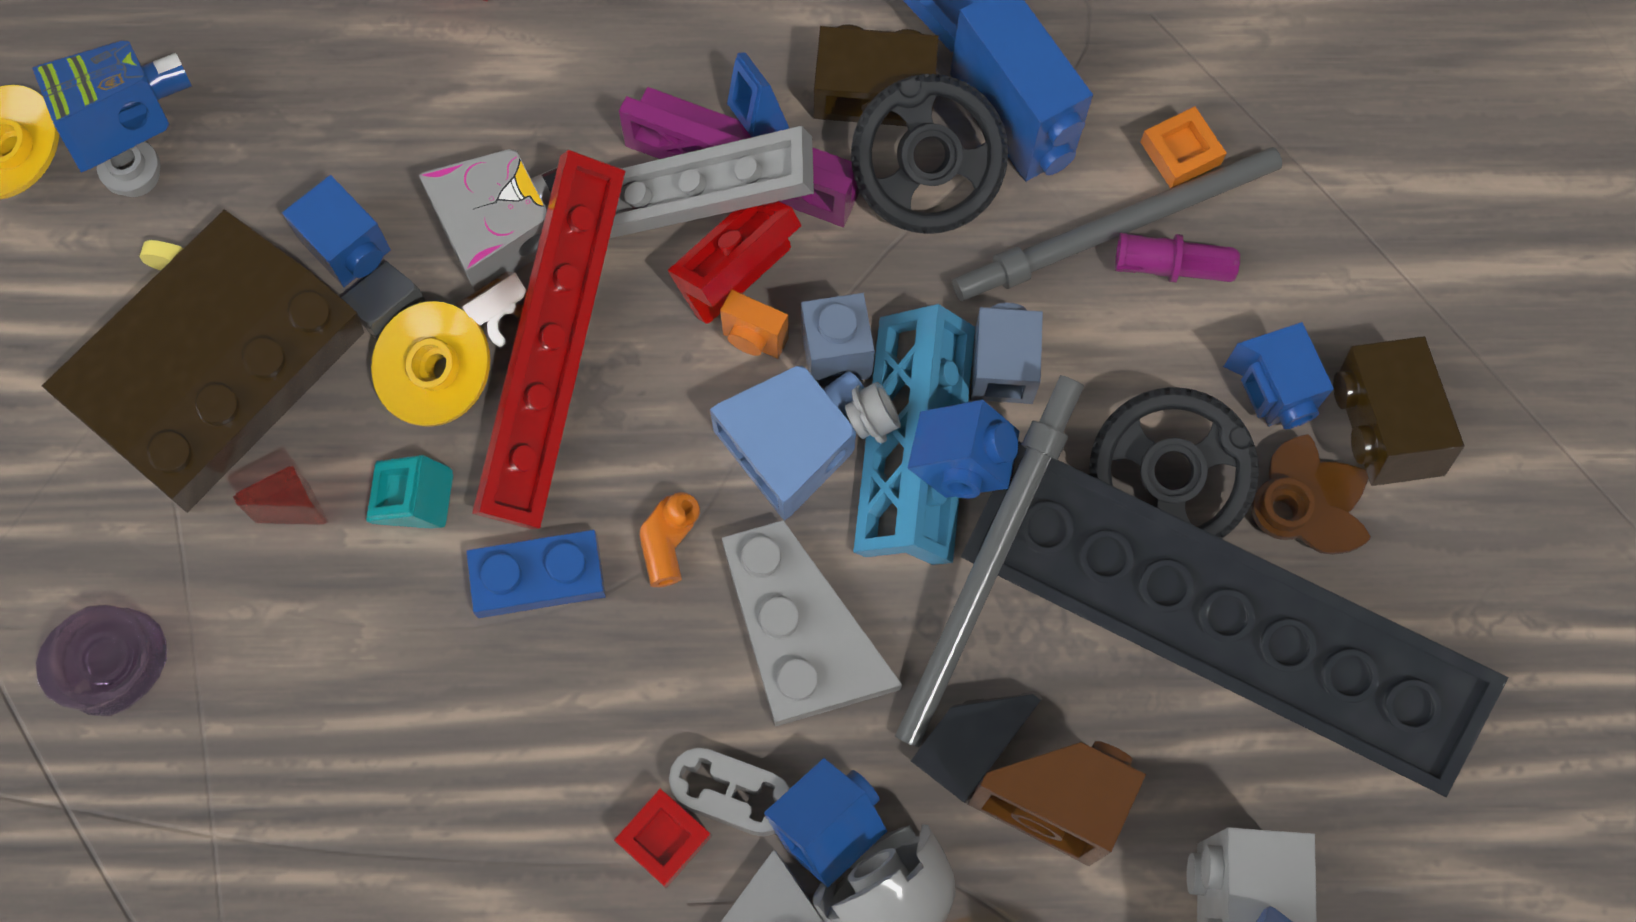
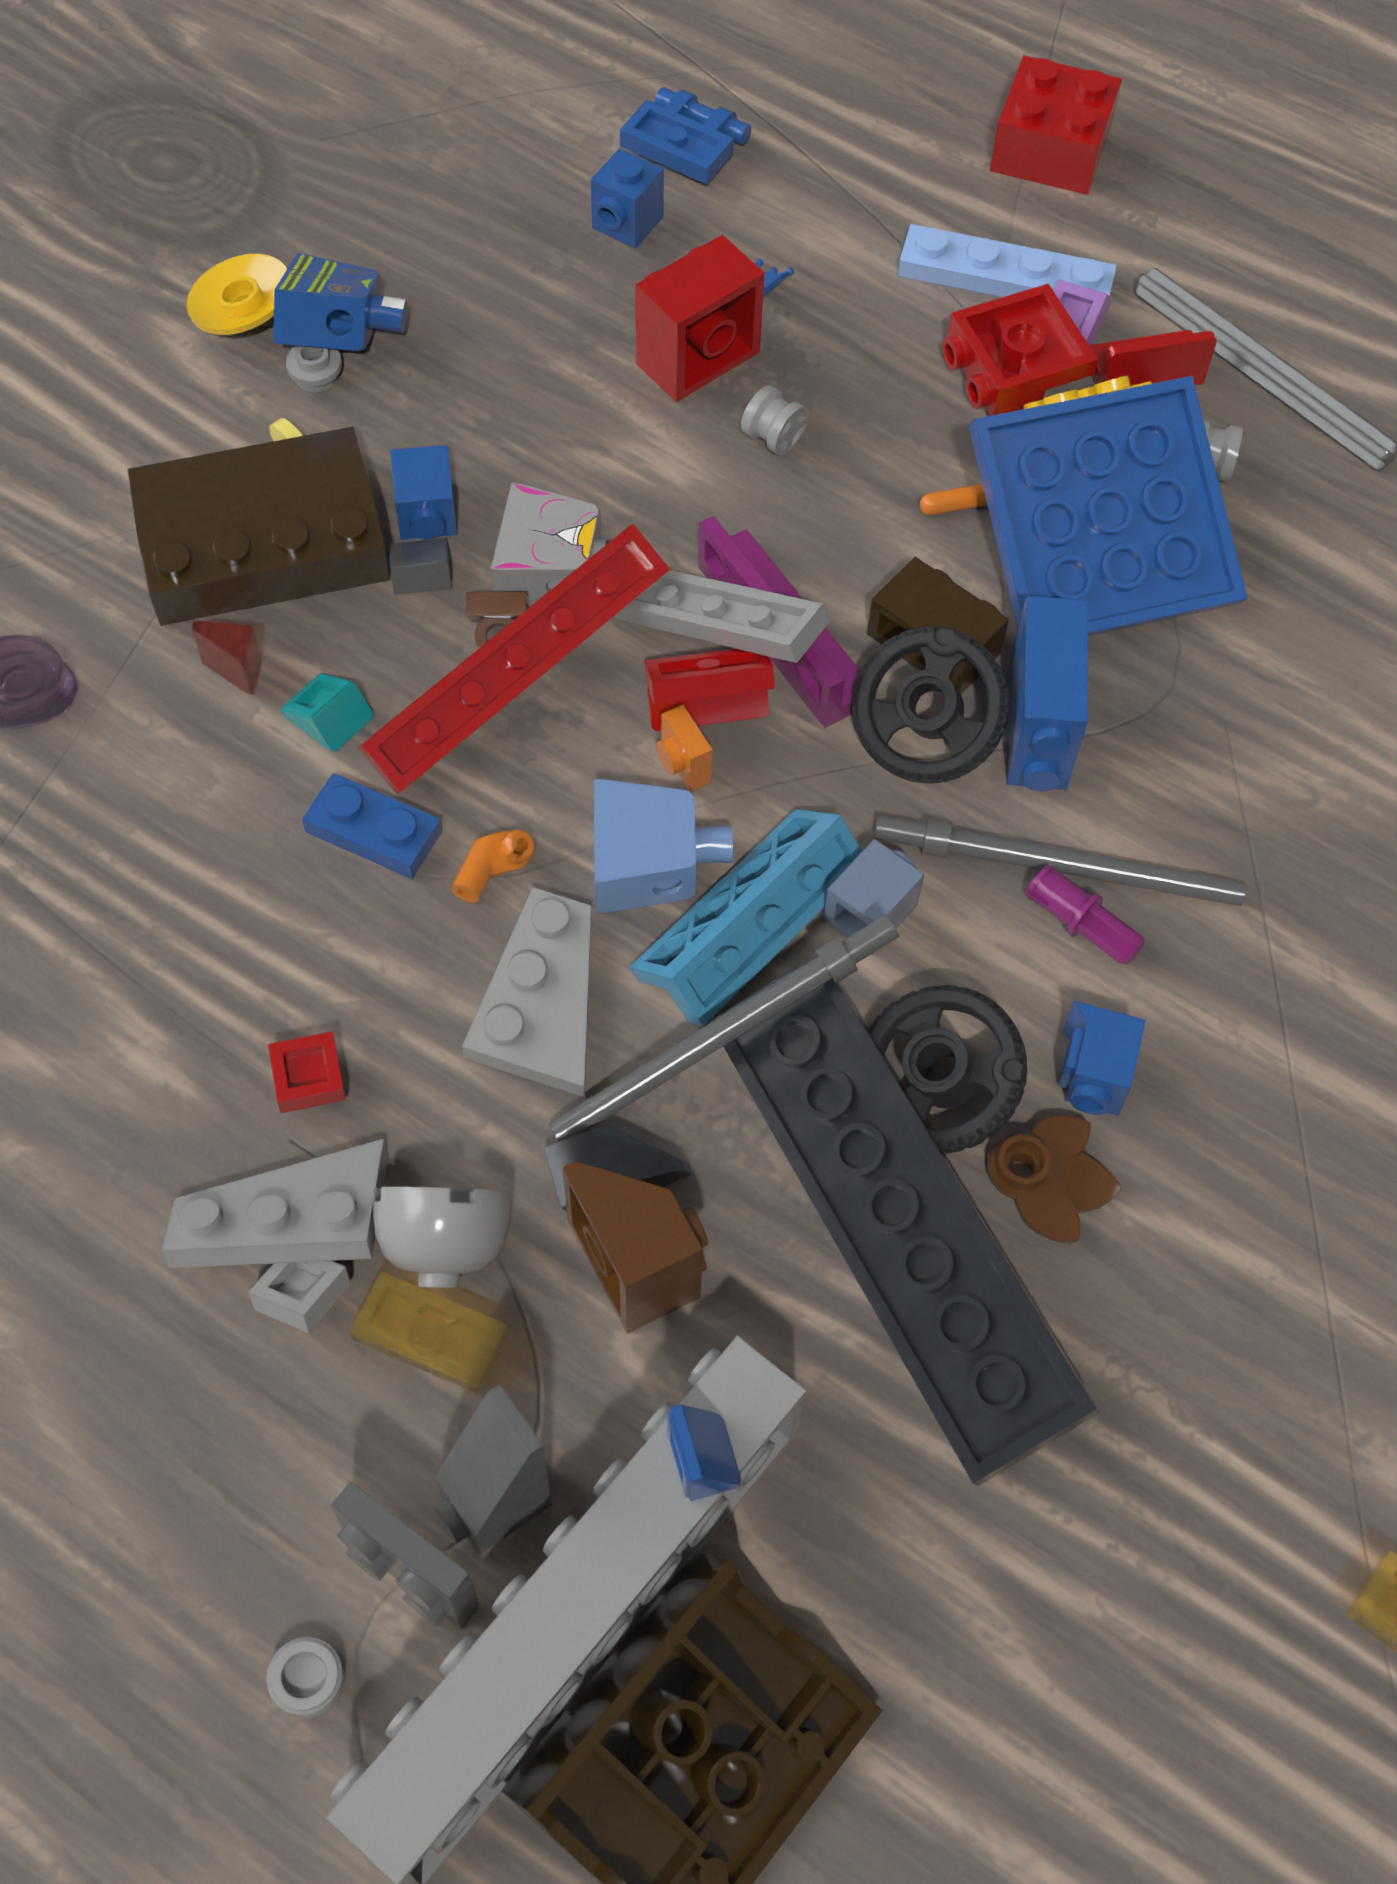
camera: 35 degrees right, 10 degrees down
(407, 357) = (414, 624): yellow dish -> none
(734, 775) = (375, 1084): light grey beam -> none
(754, 99) = (821, 580): blue slope -> none
(827, 820) = (439, 1138): blue brick -> none
(837, 338) = (742, 794): sand blue brick -> none
(872, 412) = (722, 863): light grey plate -> none
(964, 449) = (768, 930): blue brick -> none
(1183, 147) = (1162, 833): orange plate -> none
(1397, 411) = (1181, 1149): dark brown brick -> none

